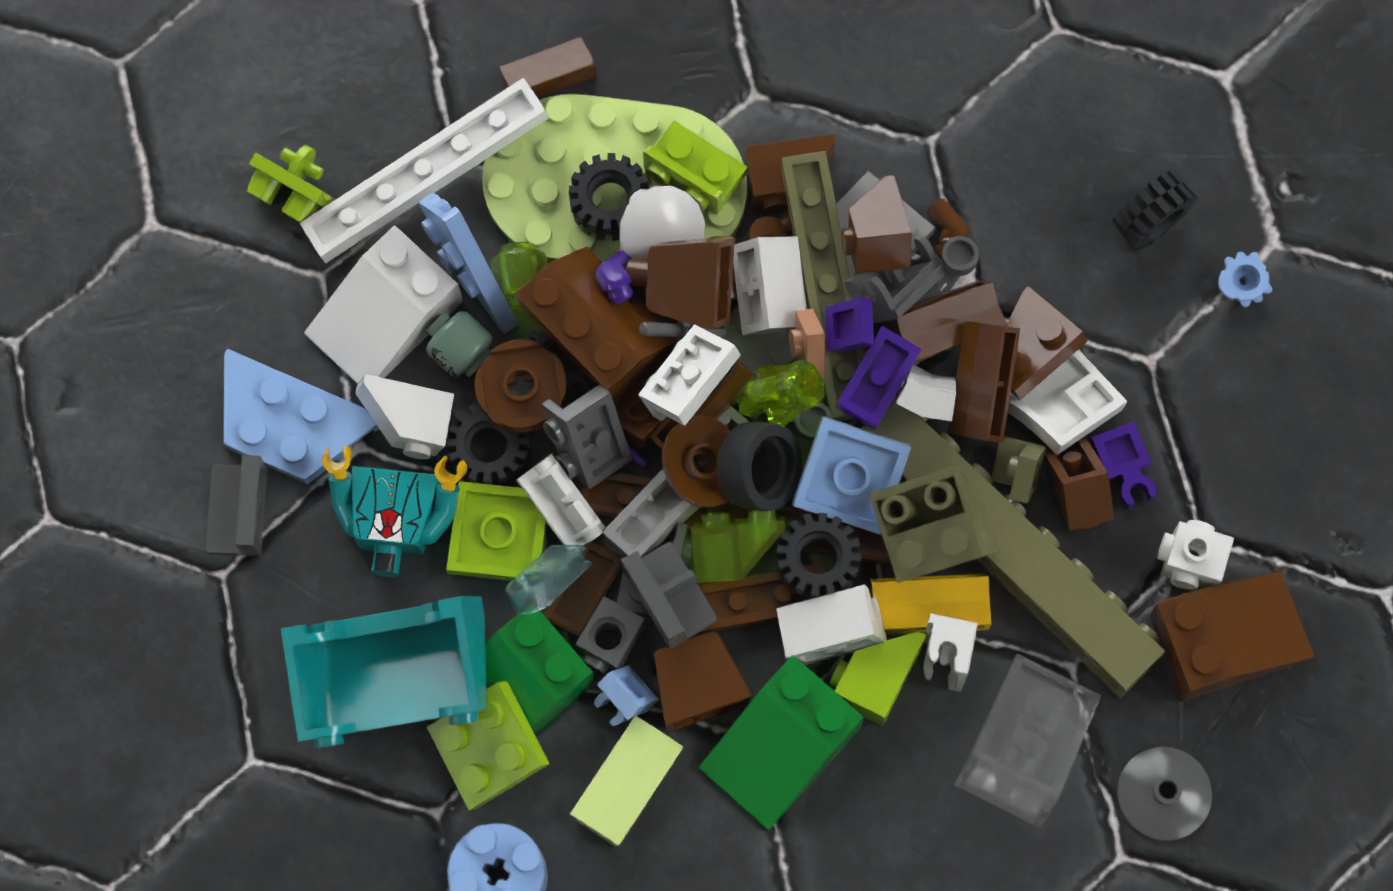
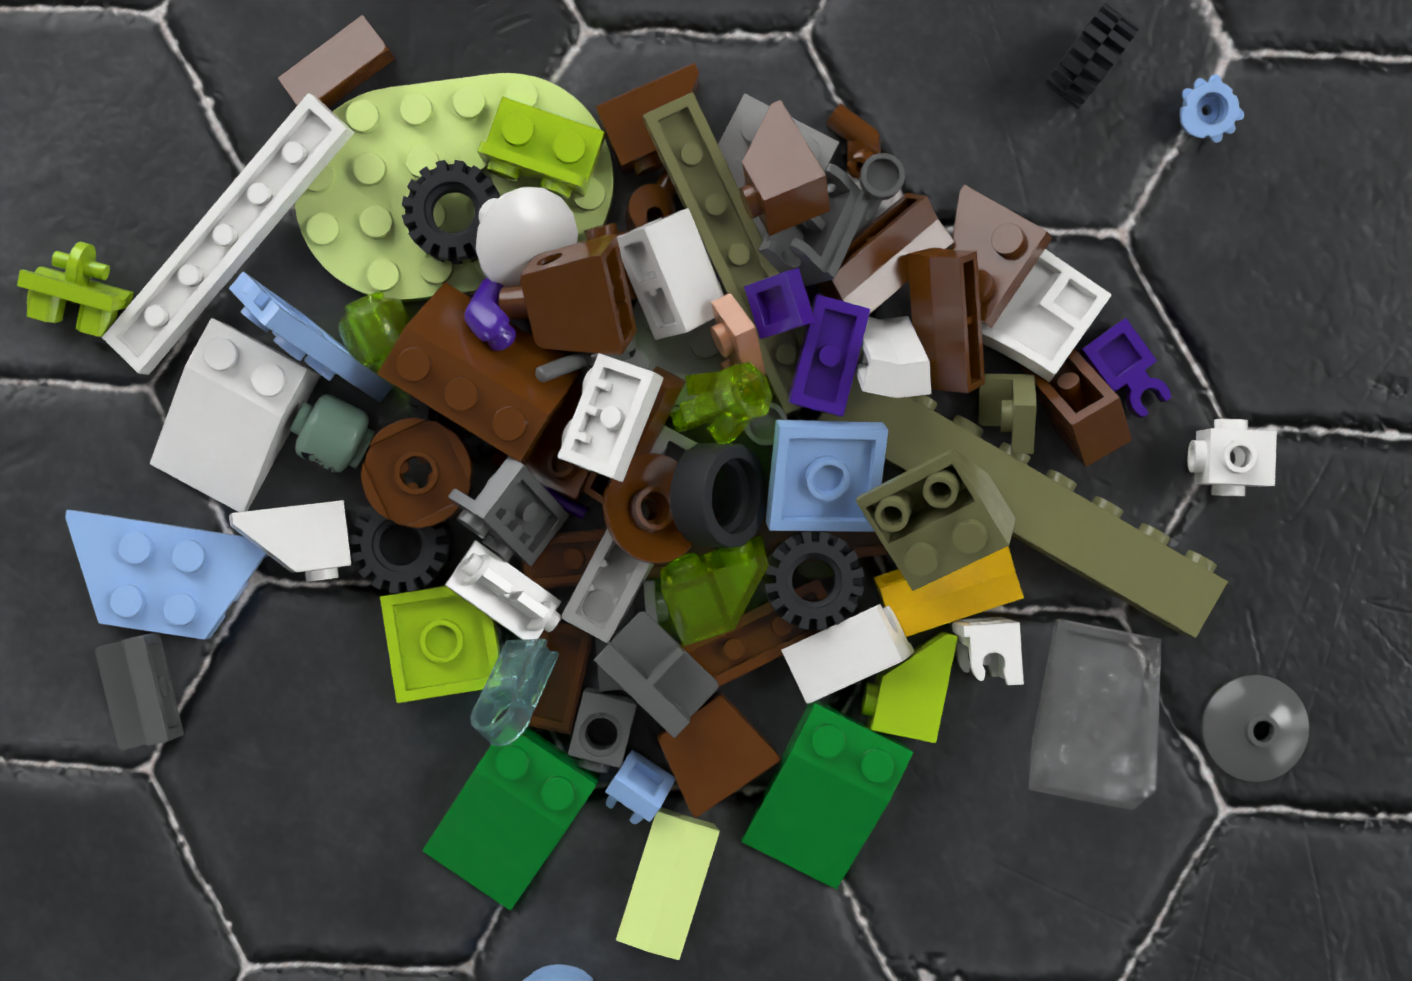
camera: 20 degrees left, 15 degrees up
(387, 669) = (362, 843): teal windscreen -> none
(392, 508) = (312, 650): teal torso -> none
(491, 752) = (503, 890): lime plate -> none
(1230, 634) = (1289, 536): reddish brown slope -> none

